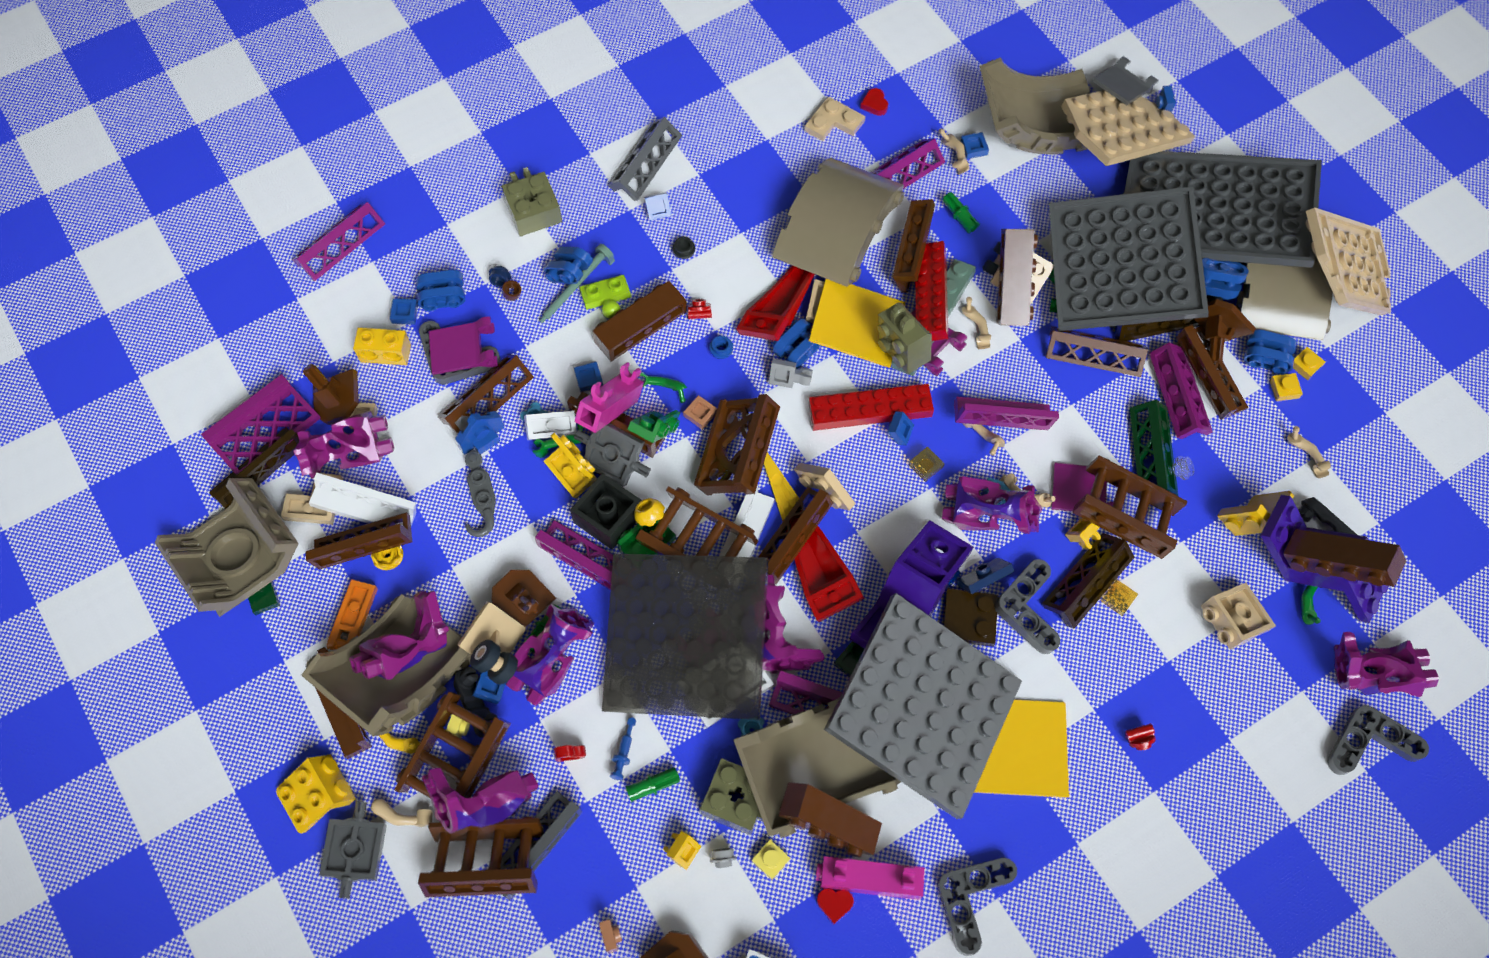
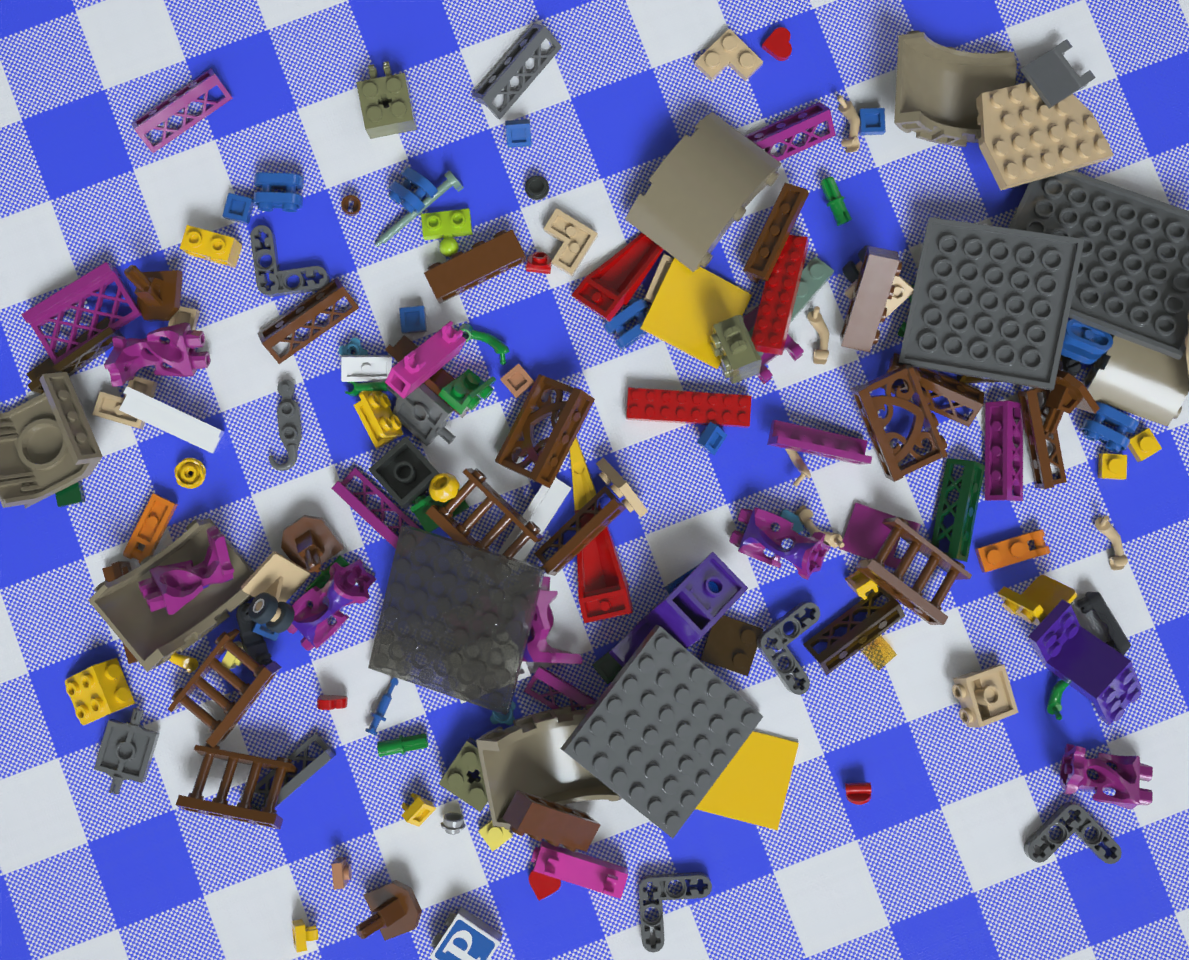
camera: 10 degrees right, 20 degrees up
(361, 545) = (166, 462): reddish brown fence -> none
(384, 810) = (157, 721): tan piece -> none
(461, 347) = (288, 263): magenta flag -> none
(480, 432) = (296, 363): blue plate -> none
(490, 804) = (247, 745): magenta hips -> none
(499, 276) = (341, 185): dark blue plate -> none
(721, 341) = (553, 303): blue plate -> none
(728, 282) = (575, 237): none -> tan plate
(785, 374) = (612, 357): light grey plate -> none
(926, 464) = (728, 481): clear yellow plate -> none
(985, 575) = (755, 608): dark blue plate -> none
(1084, 357) = (869, 407): none -> reddish brown fence
(1166, 99) = (1095, 104): blue plate -> none
(1183, 467) = (981, 534): clear plate -> none
(1217, 478) = (1011, 551): none -> orange plate
(1345, 557) = (1101, 680): reddish brown brick -> none

